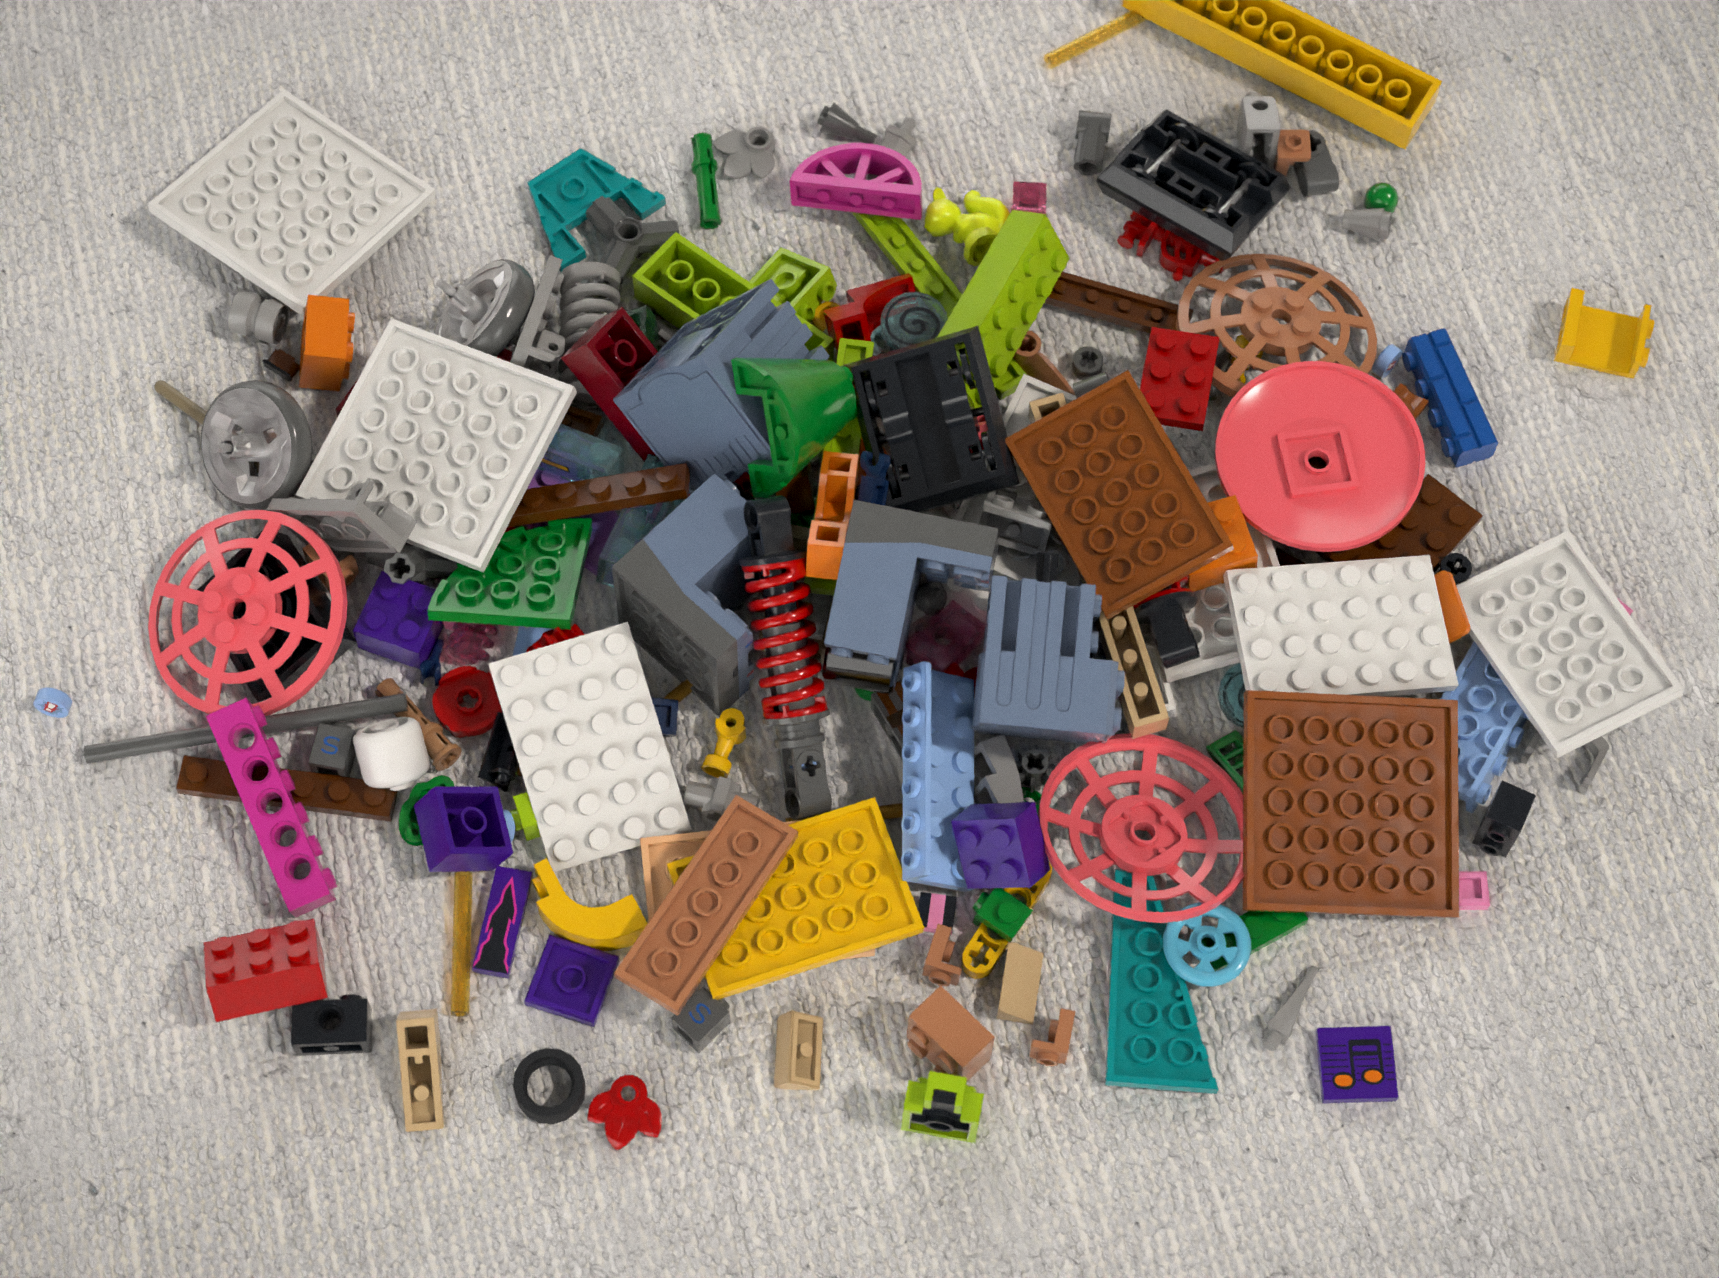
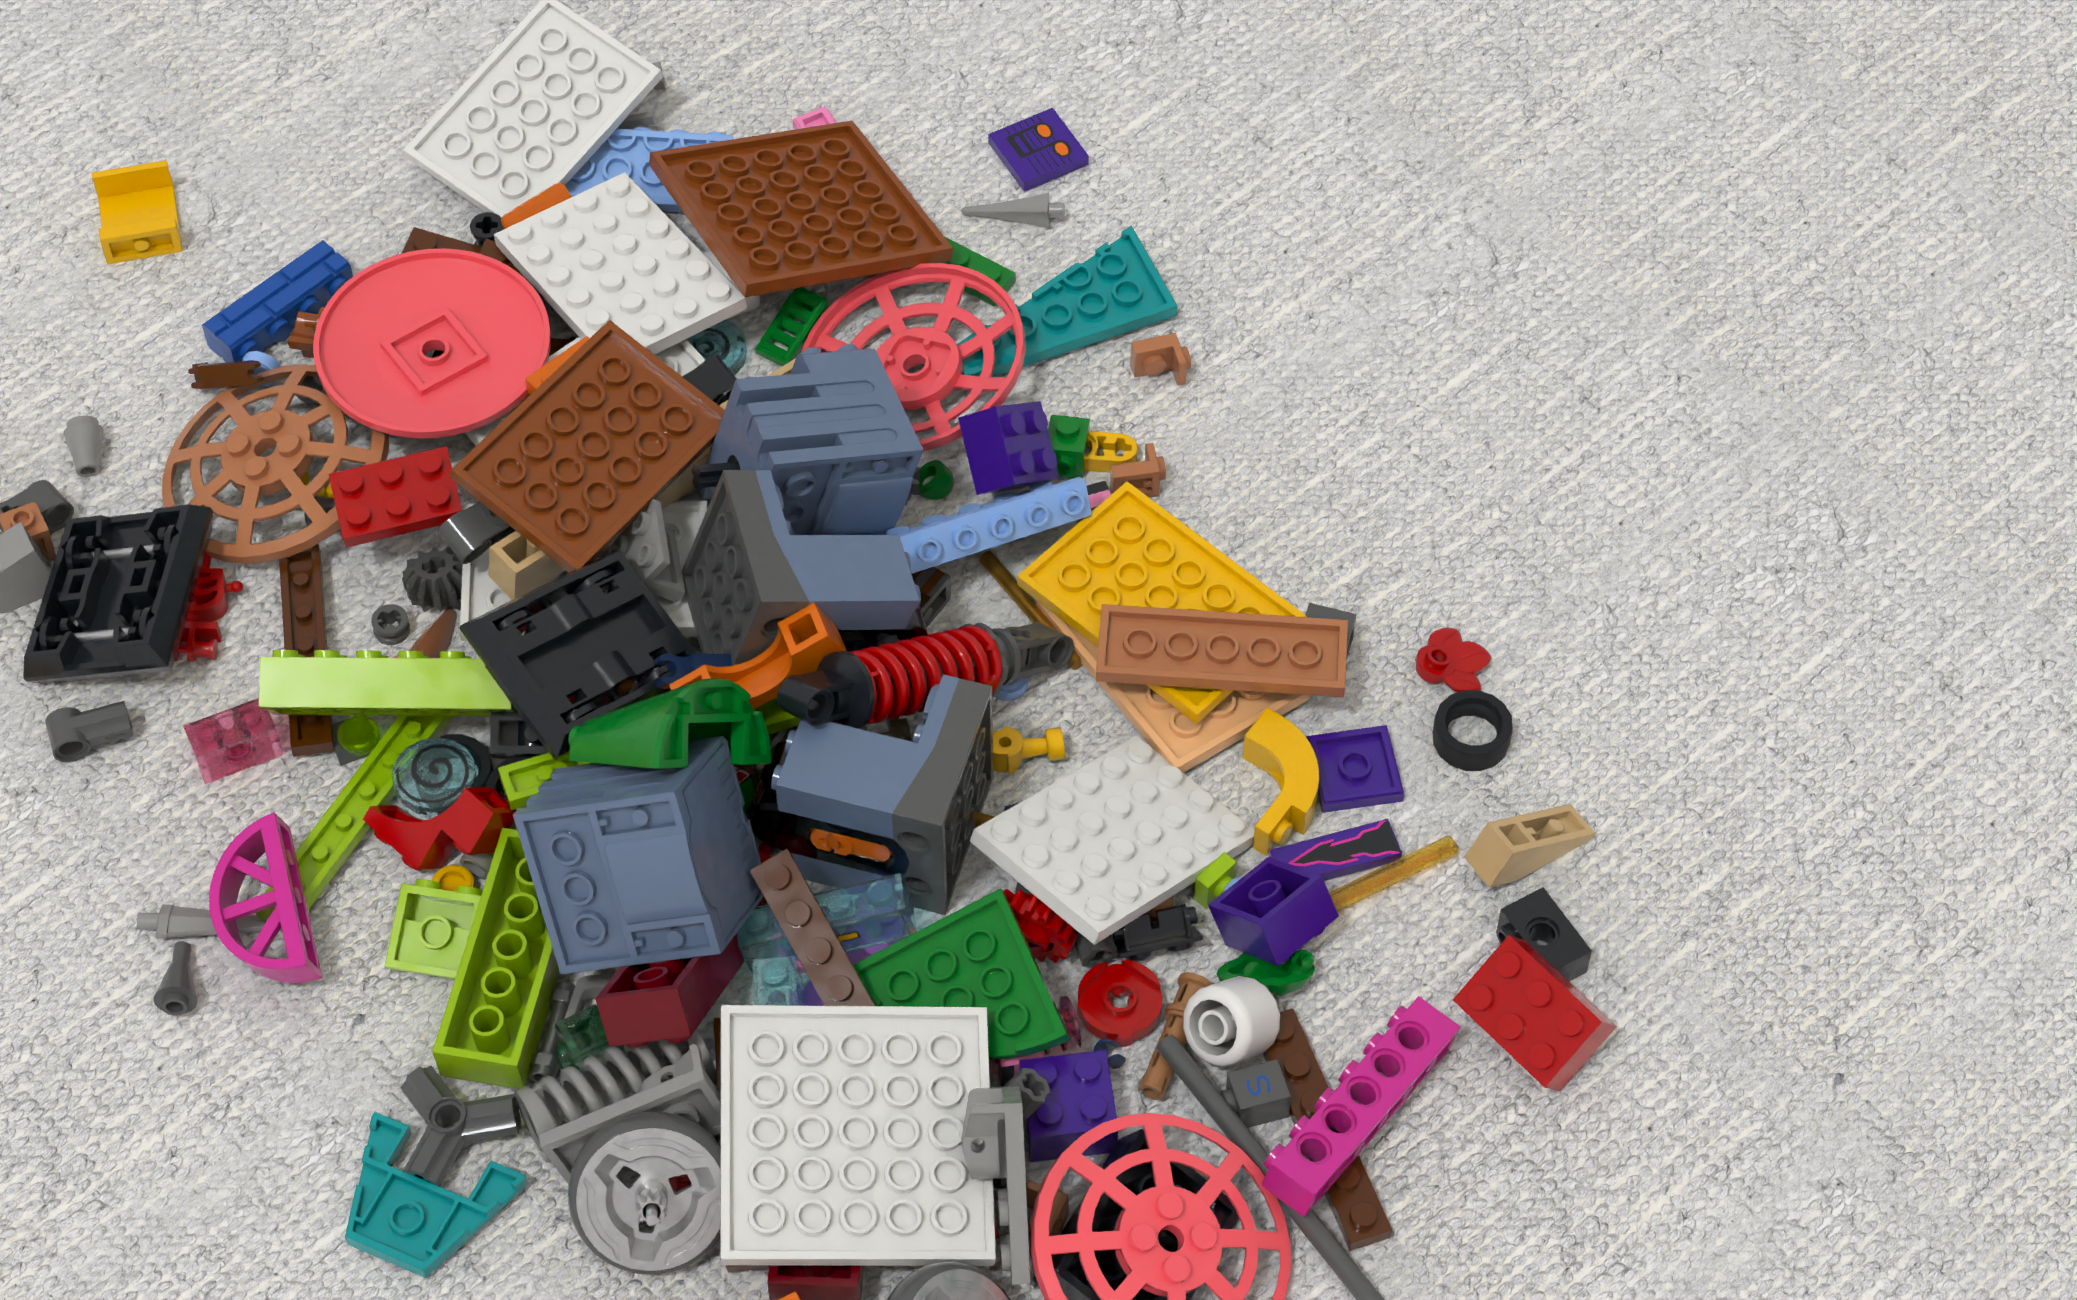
camera: 115 degrees left, 10 degrees down
(704, 168) = (311, 1095): green pin -> none
(716, 796) = (1088, 720): light grey axle -> none
(744, 155) = (269, 1066): light grey plate -> none
(798, 1051) = (1301, 556): tan slope -> none
(942, 1107) = (1291, 403): lime piece -> none
(949, 1036) = (1220, 424): nougat brick -> none
(974, 229) = (264, 778): neon yellow animal -> none
(996, 773) = (939, 492): light grey slope -> none
(1020, 984) = (1126, 413): tan slope -> none
(1203, 973) = (999, 252): medium azure plate -> none
(1381, 196) = (46, 448): green piece -> none
(1382, 329) = (225, 374): none -> reddish brown piece
(1503, 819) = (742, 102): black brick -> none

